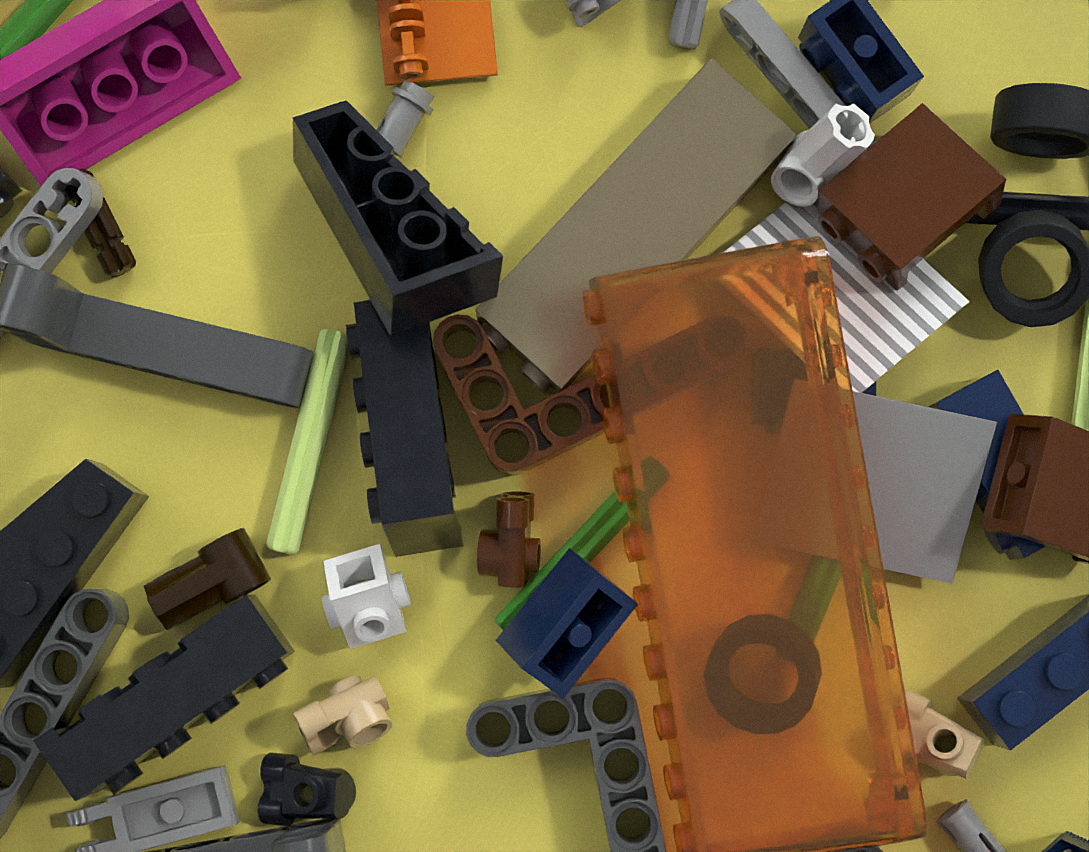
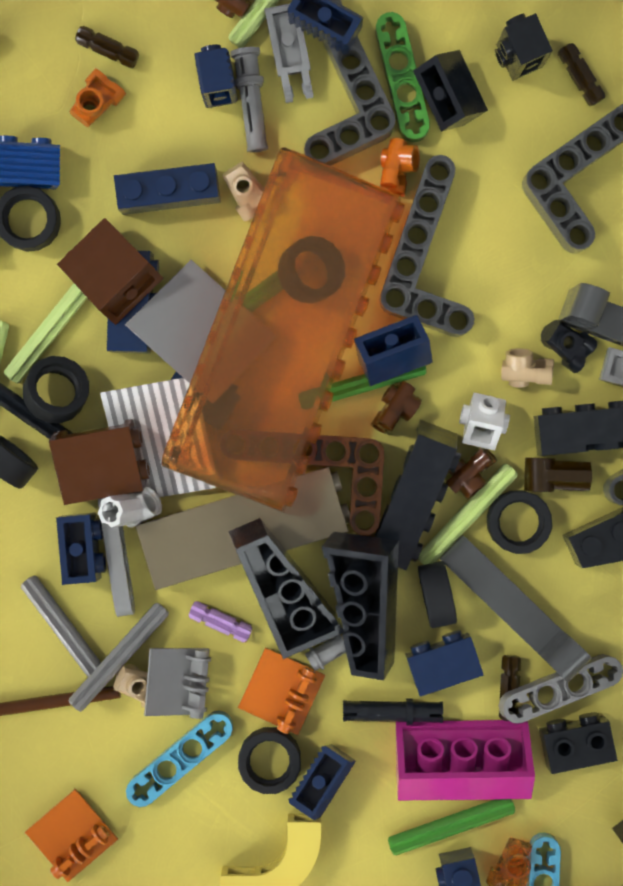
camera: 145 degrees left, 5 degrees up
(181, 465) = (544, 518): none -> black tyre
(218, 198) = (443, 663): none -> dark blue brick
(253, 88) = (393, 711): none -> black pin
(286, 293) = (437, 594): none -> black tyre
(342, 499) = (468, 476): none -> reddish brown plate
(518, 161) = (287, 597): none -> black wedge
(586, 73) = (220, 621): none -> lavender axle

